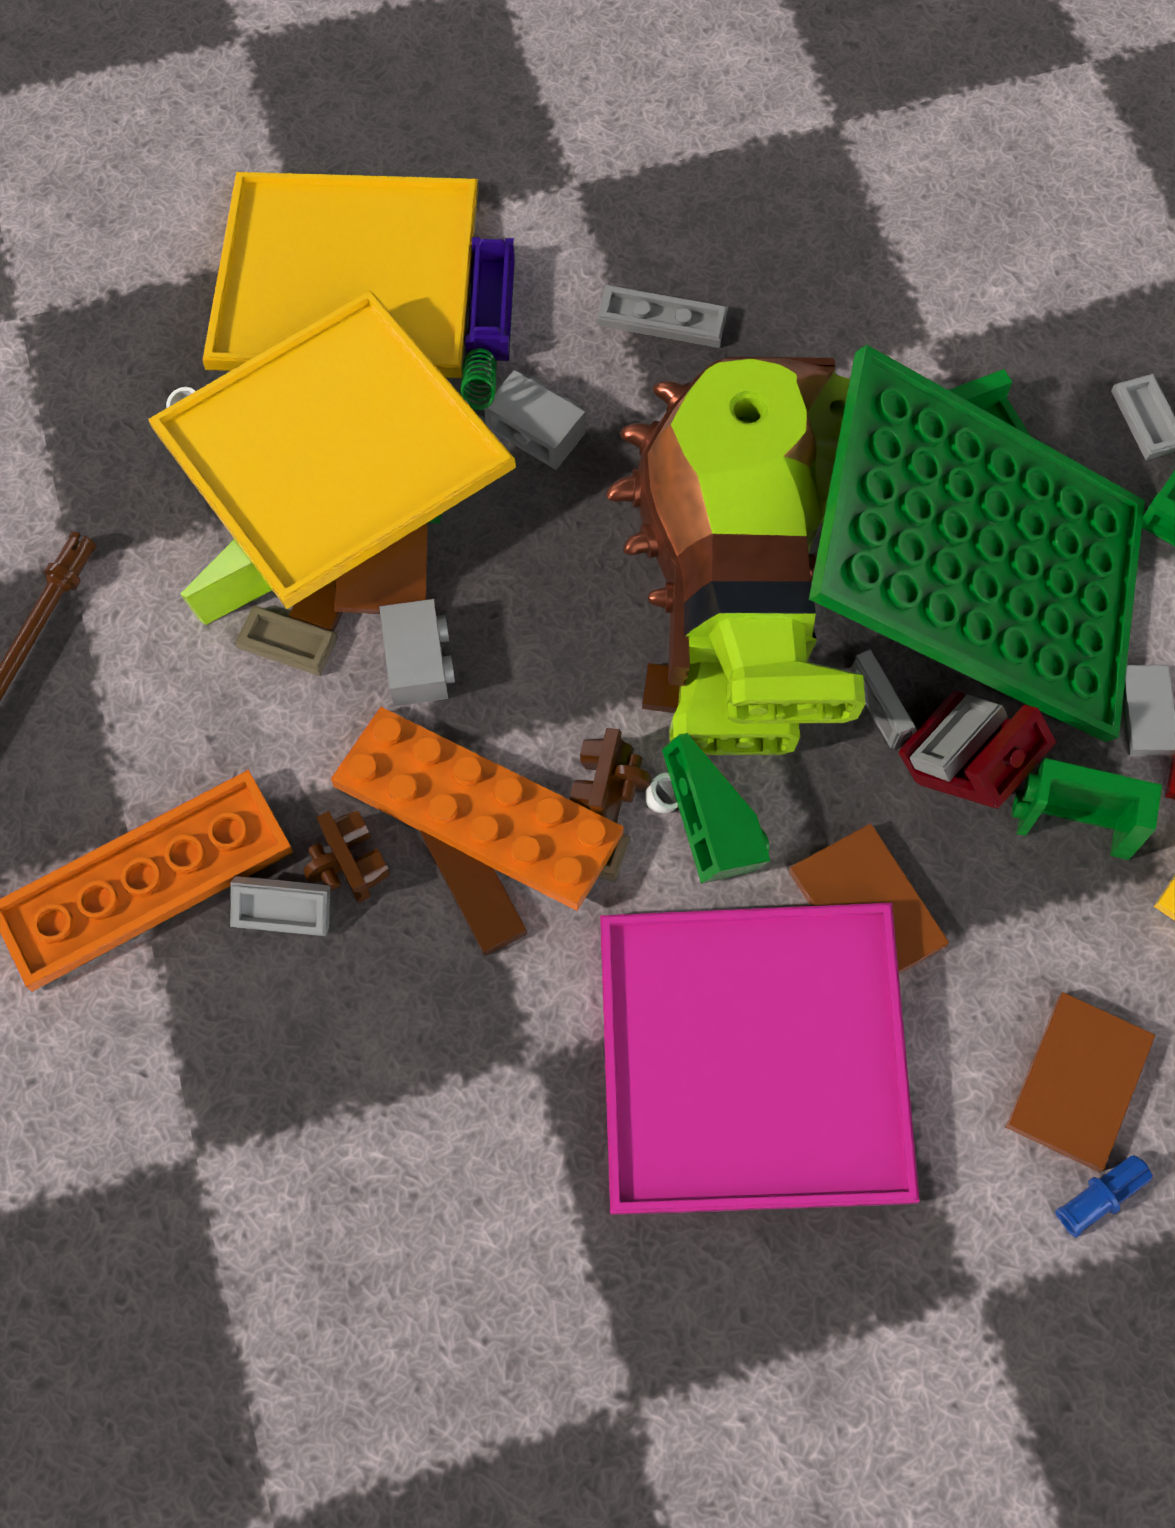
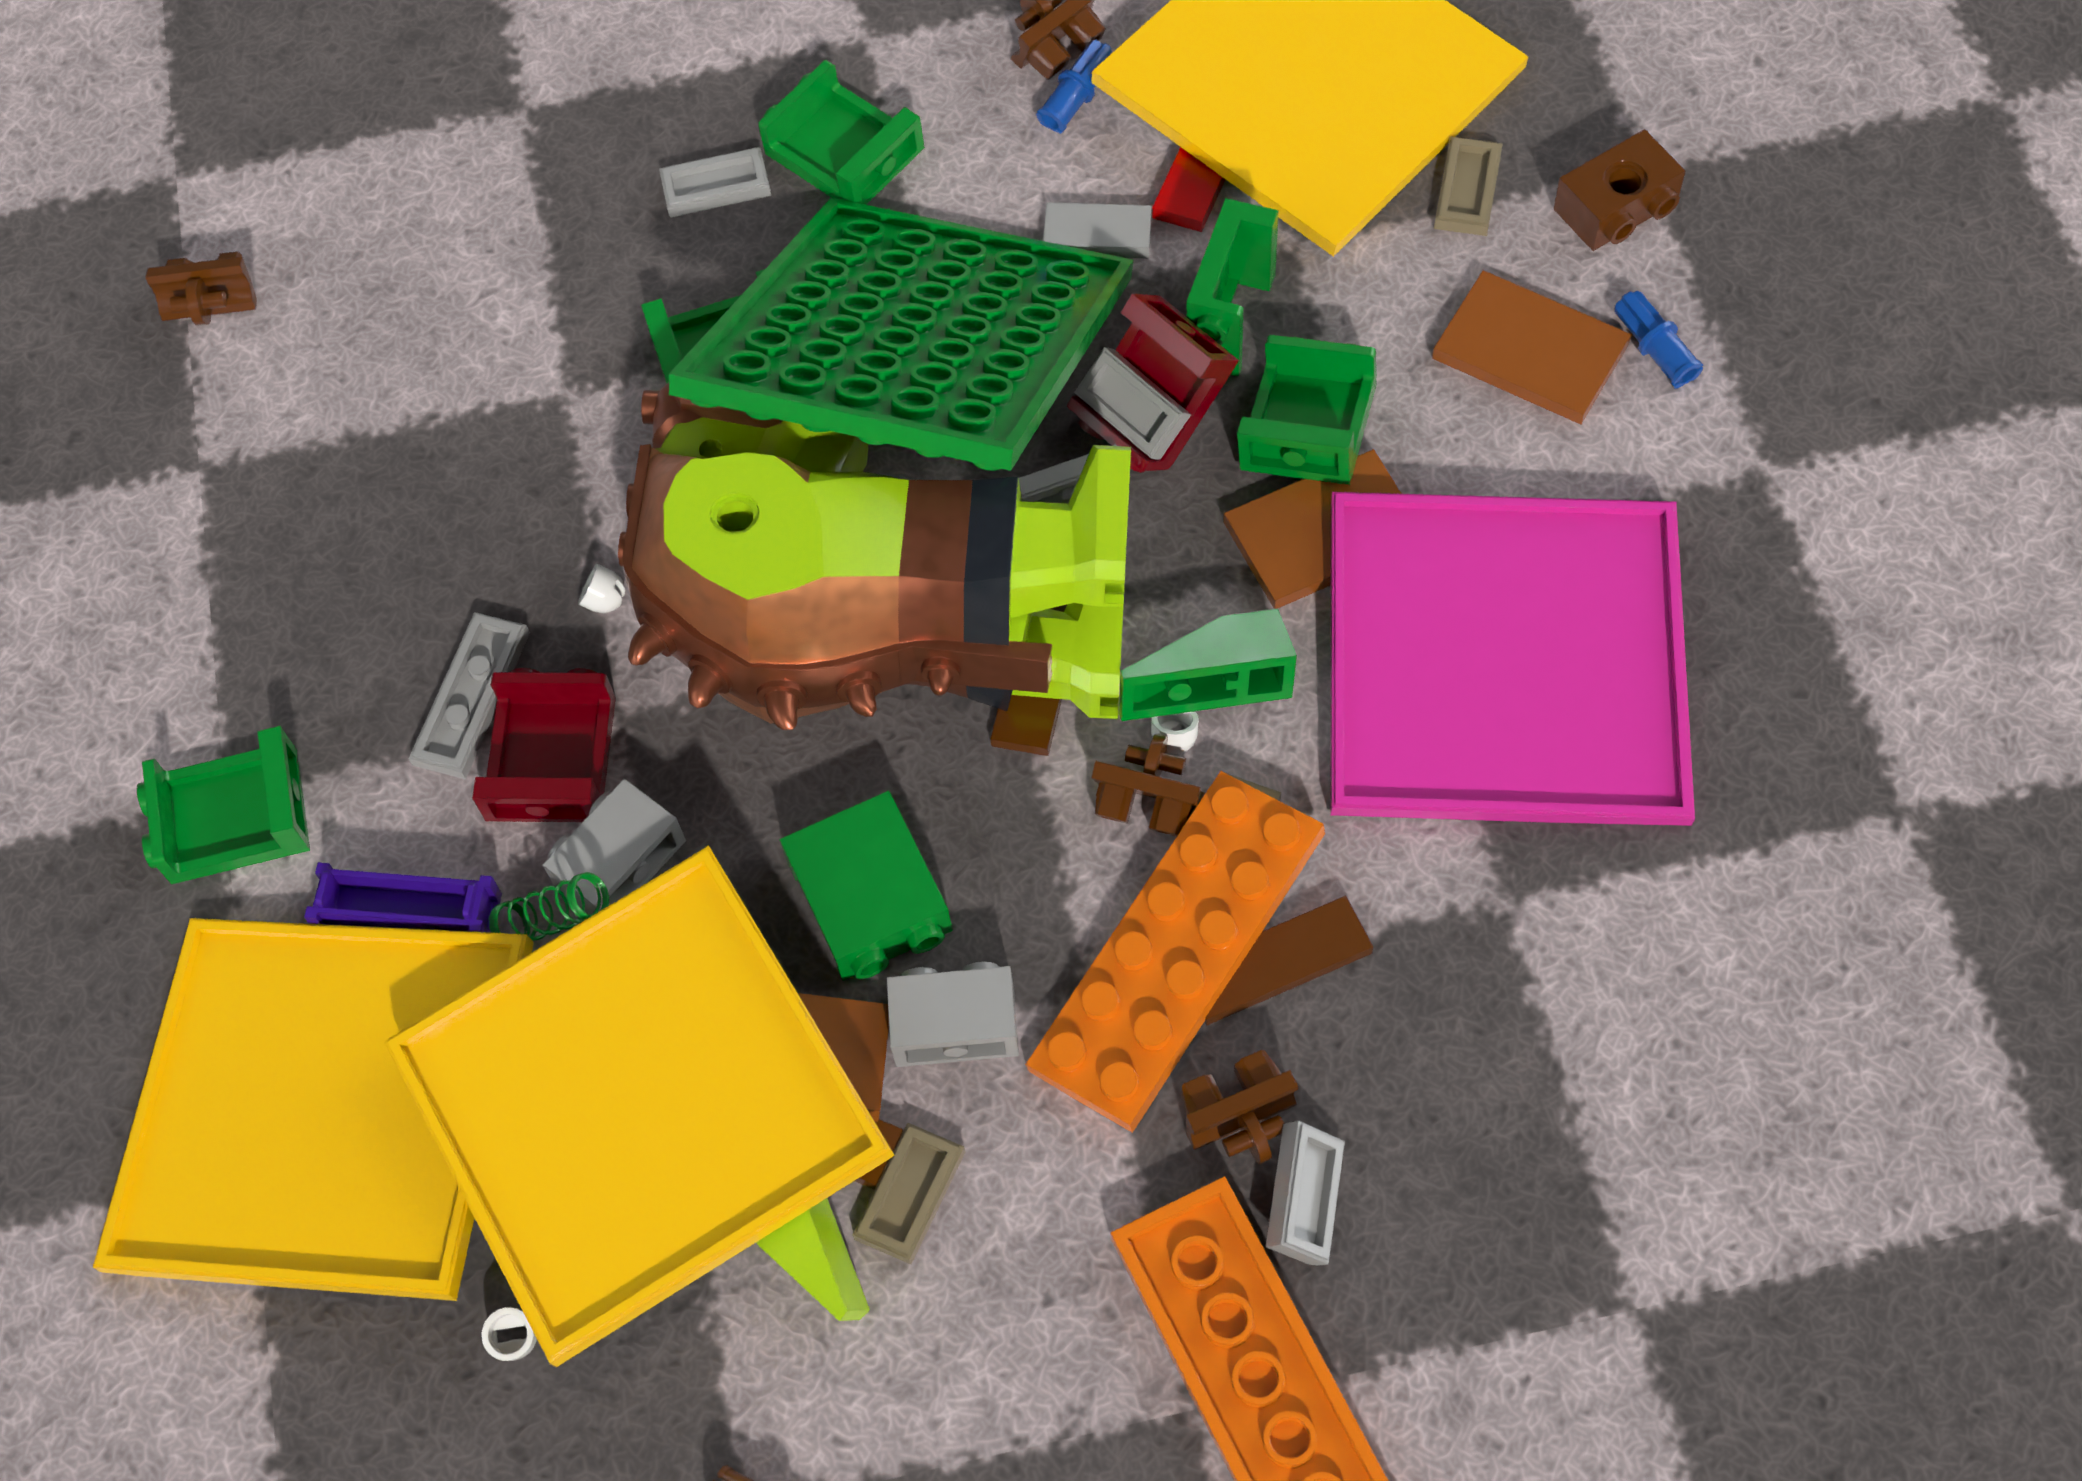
camera: 80 degrees left, 5 degrees down
(514, 583) = (867, 886): none -> green panel
(558, 182) = (224, 811): none -> green panel
(618, 368) = (547, 746): none -> dark red panel
(977, 886) = (1309, 410): none -> green panel
(985, 91) = (202, 288): none -> reddish brown hips

